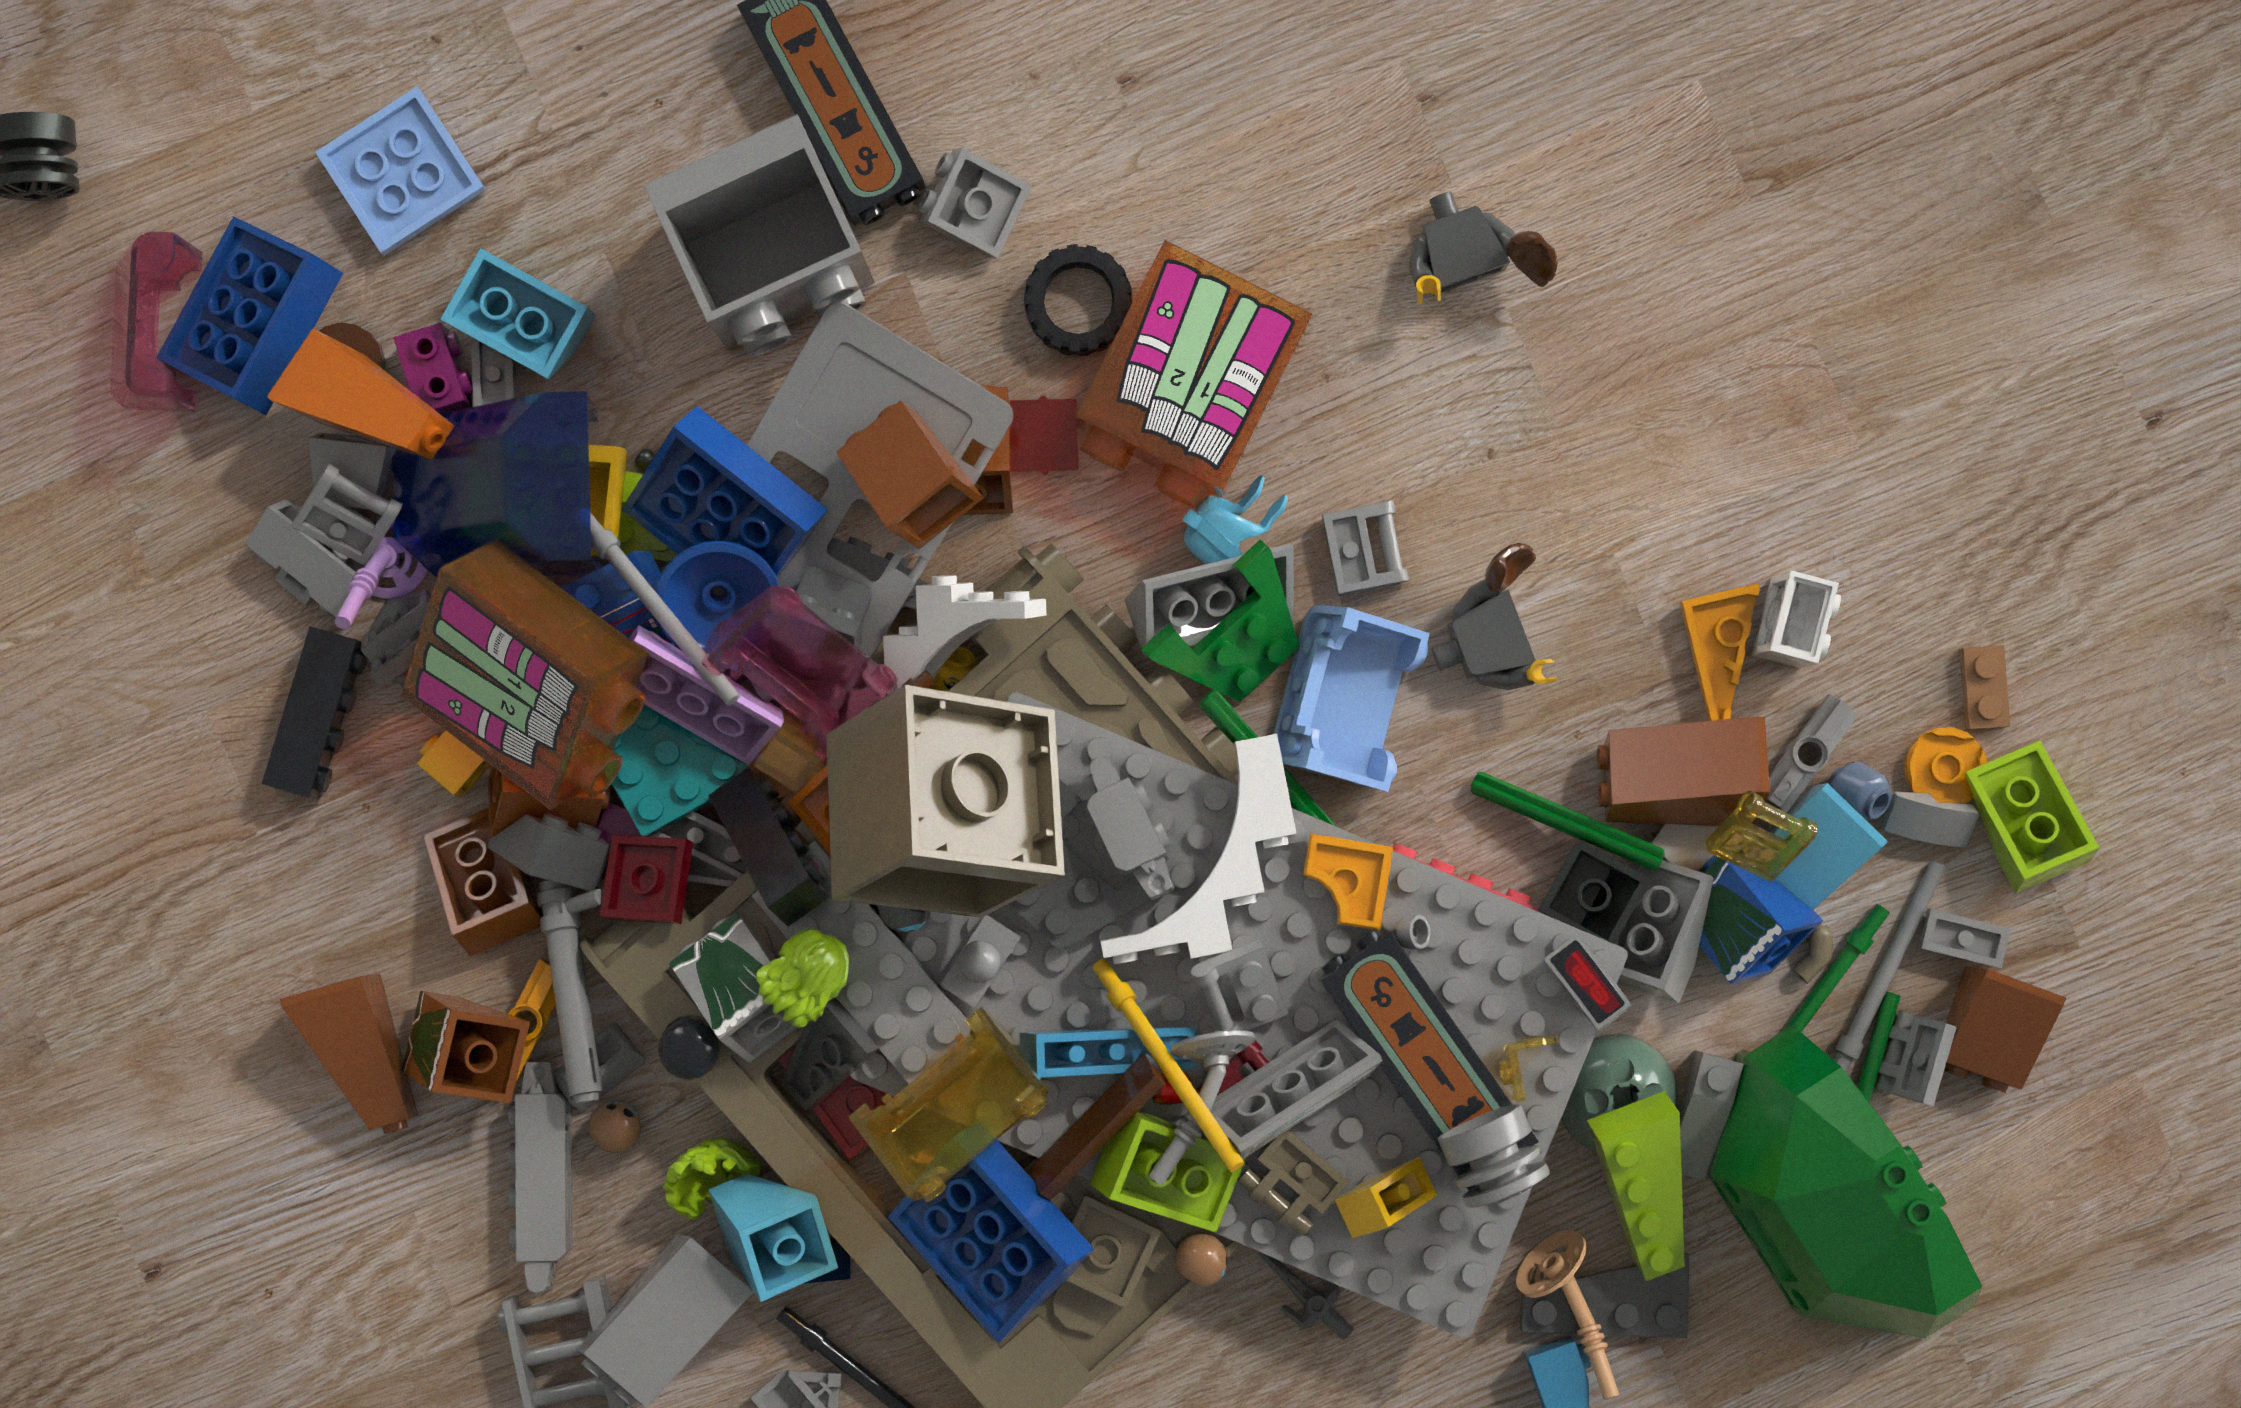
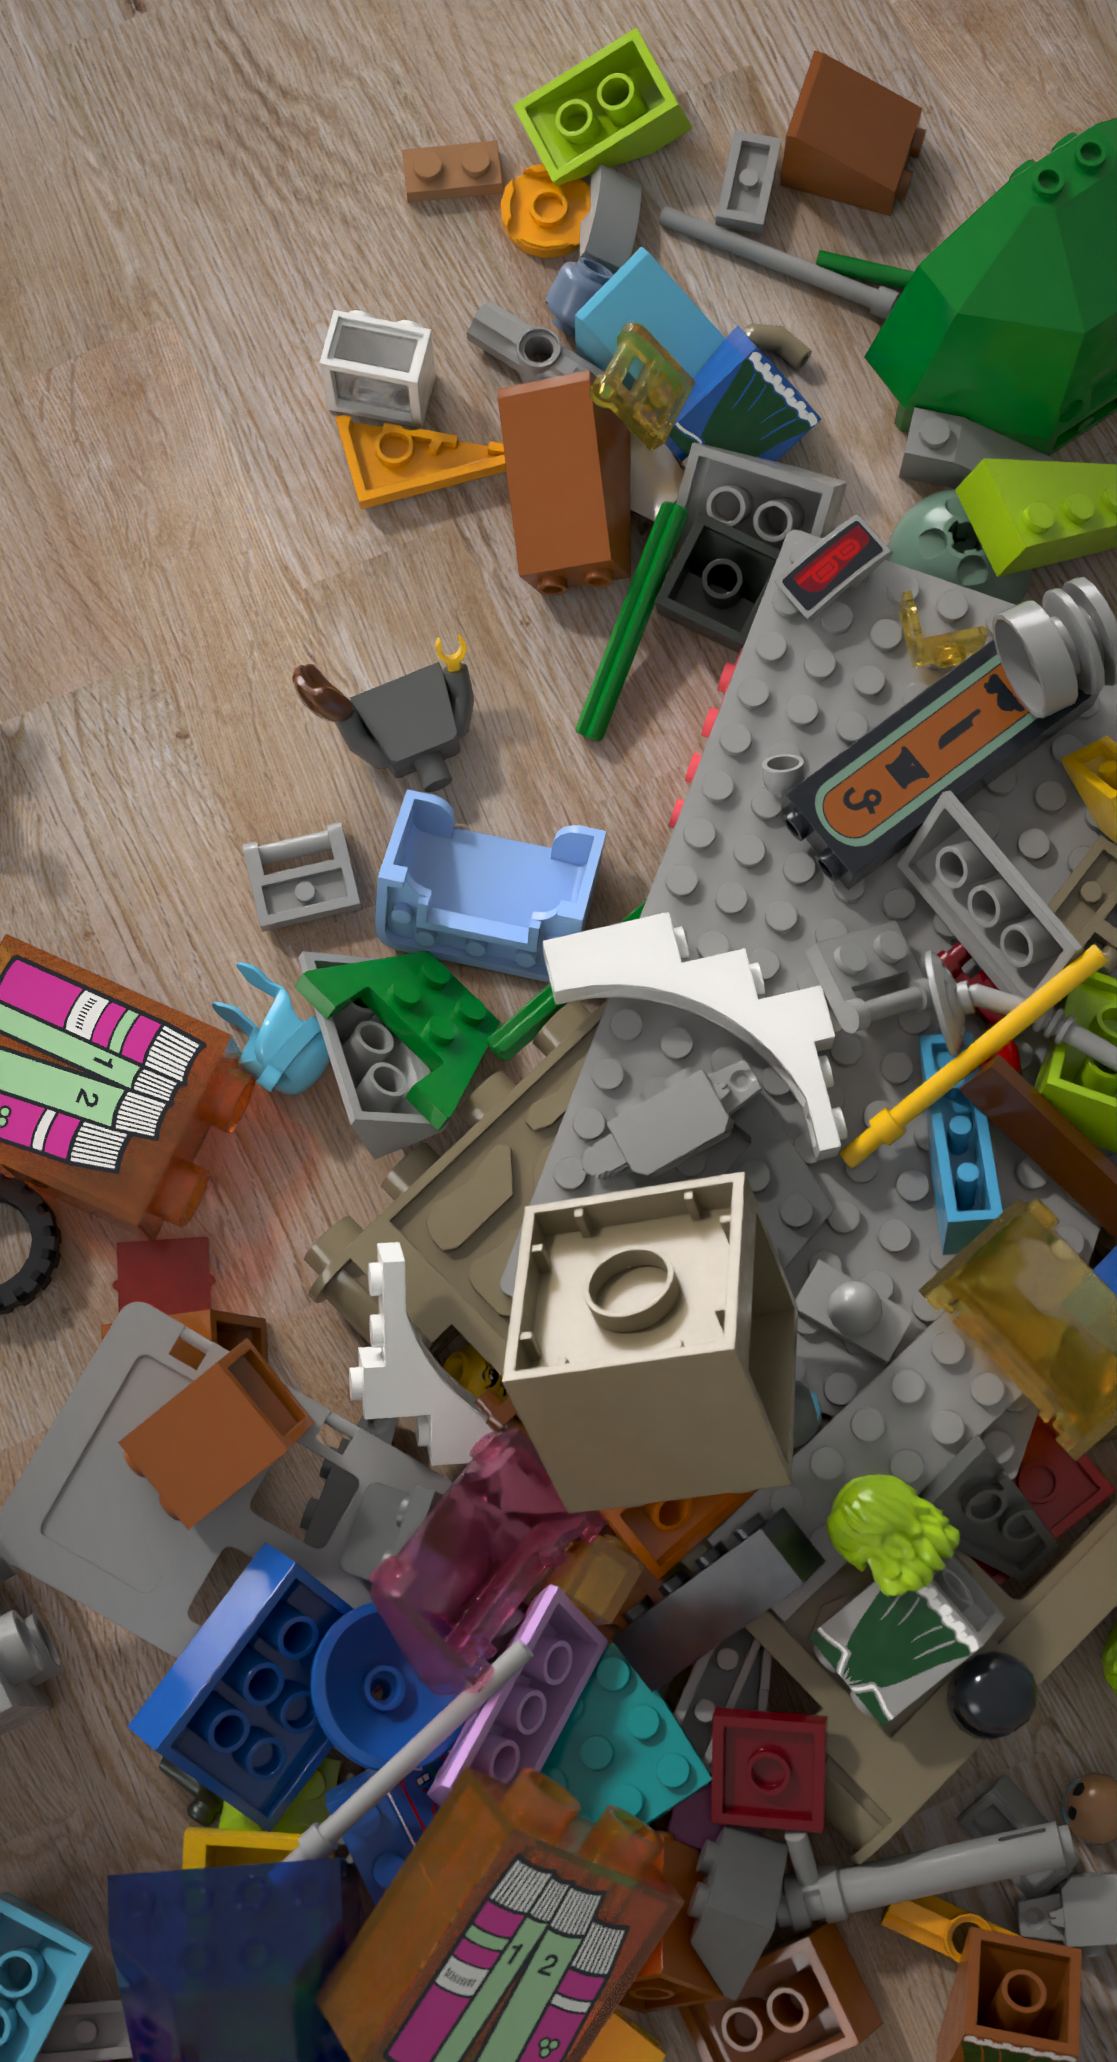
camera: 90 degrees left, 10 degrees down
(1354, 876) = (716, 850): light orange tile -> none
(1857, 942) = (760, 298): green bar -> none
(1916, 1058) = (895, 213): light grey plate -> none

